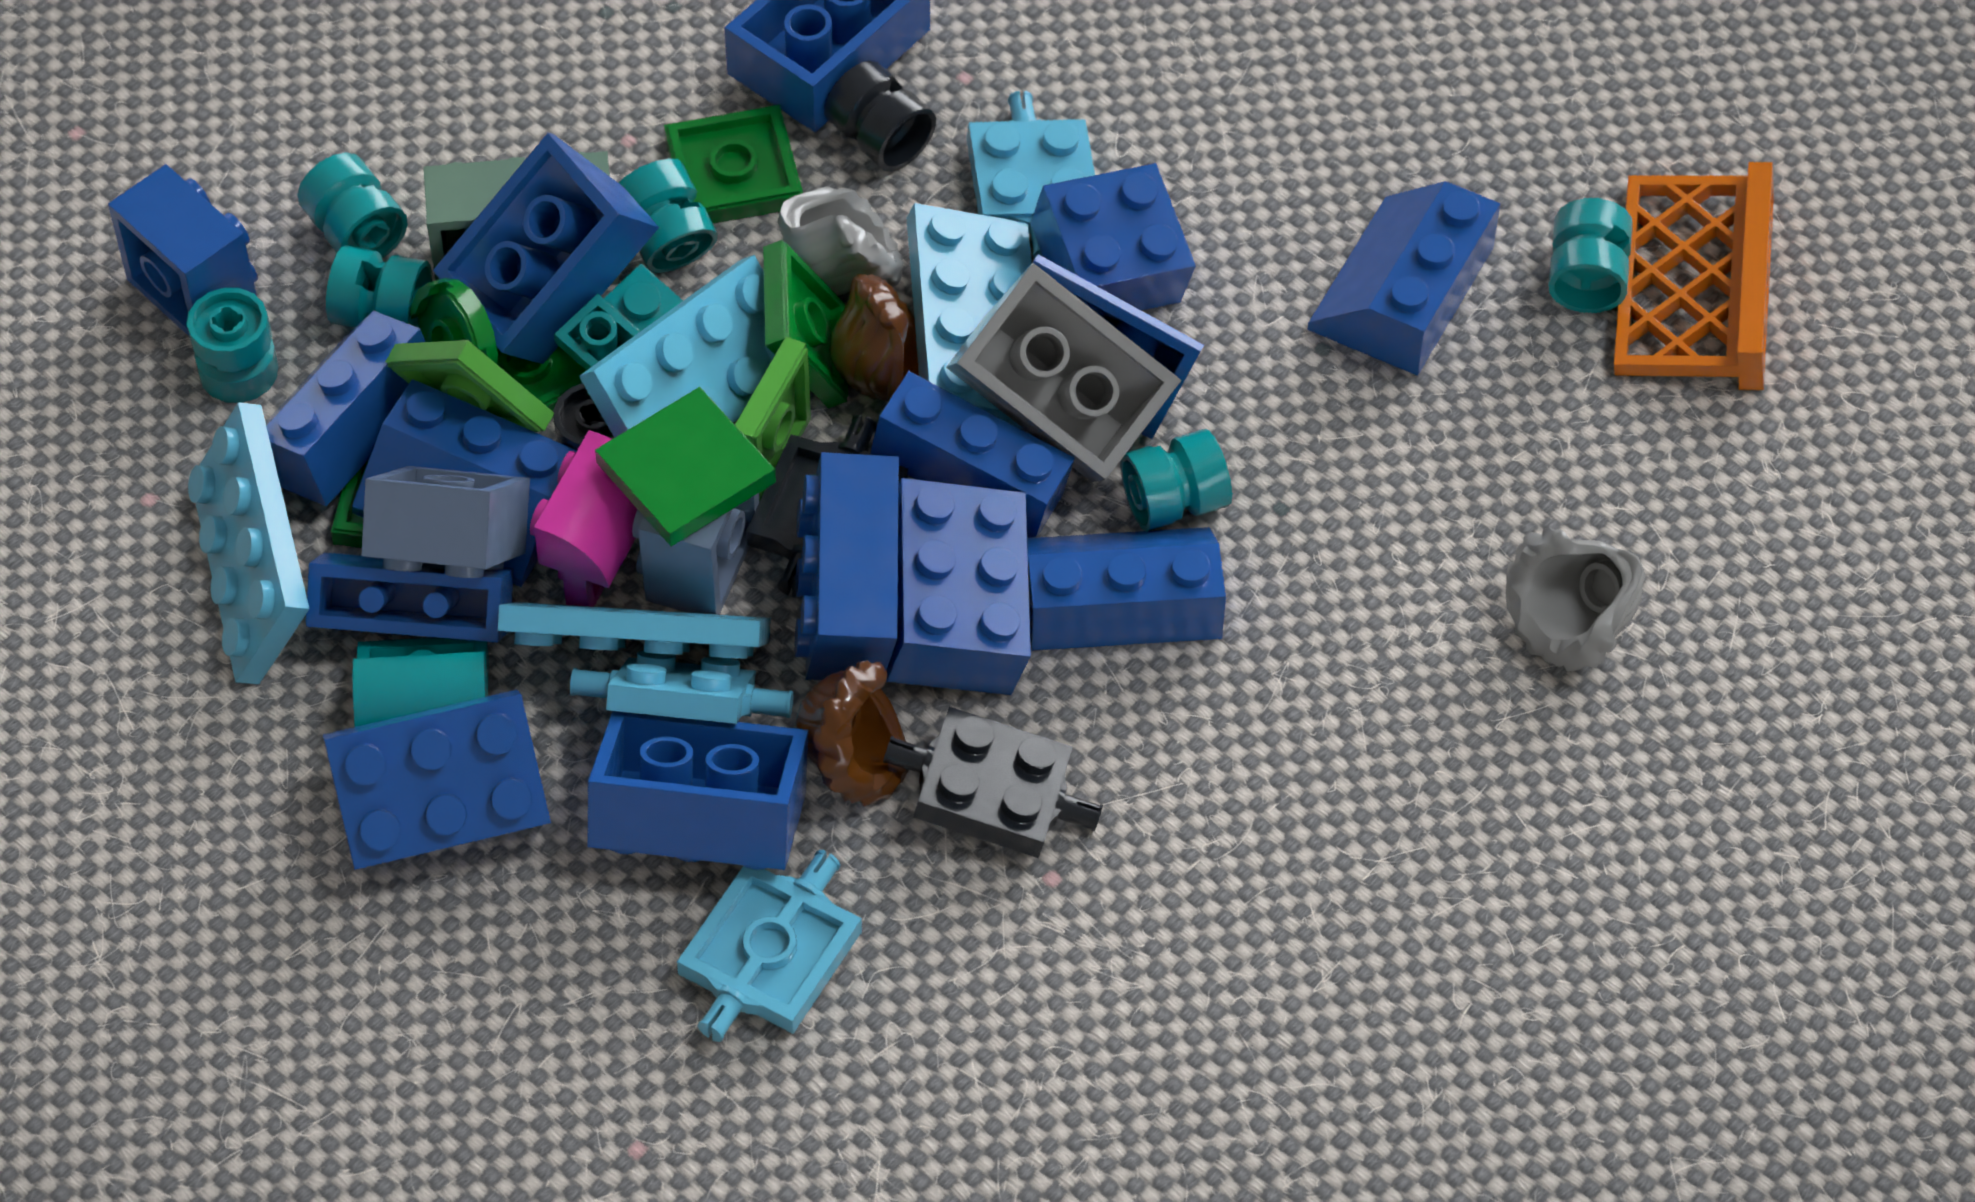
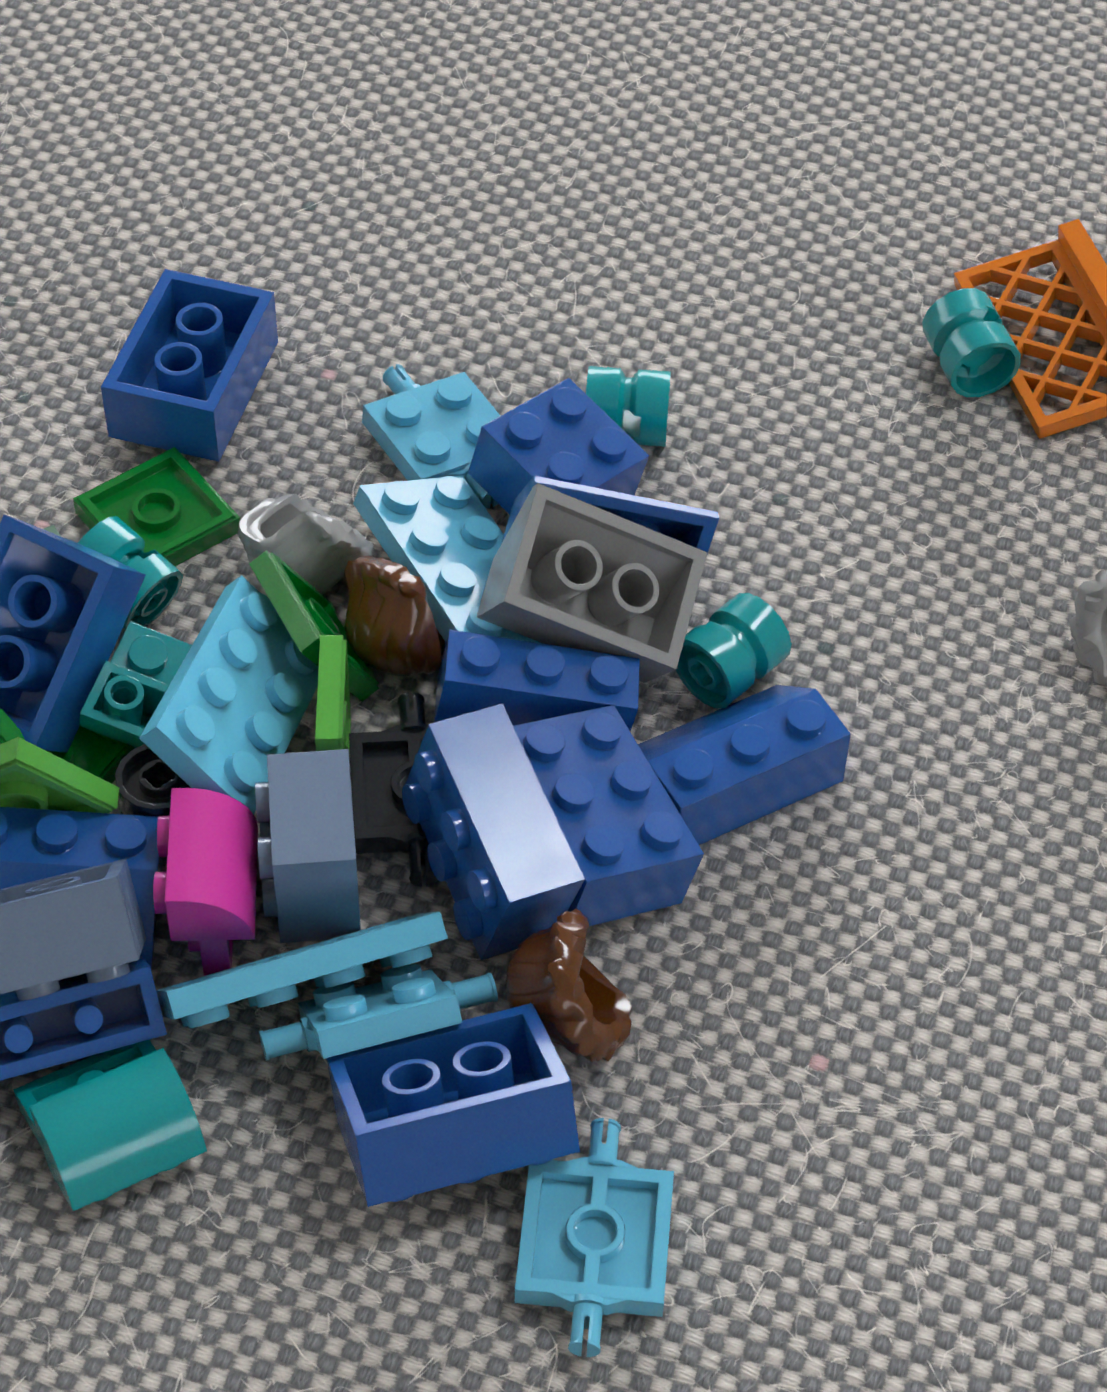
camera: 25 degrees left, 5 degrees down
(436, 779) = (176, 1198): blue brick -> none
(685, 466) = (291, 787): green tile -> none
(880, 115) = (272, 422): black wheel -> none
(993, 782) = (722, 990): plate -> none
(1218, 208) = (633, 403): none -> teal wheel
(1409, 274) = (822, 408): blue slope -> none

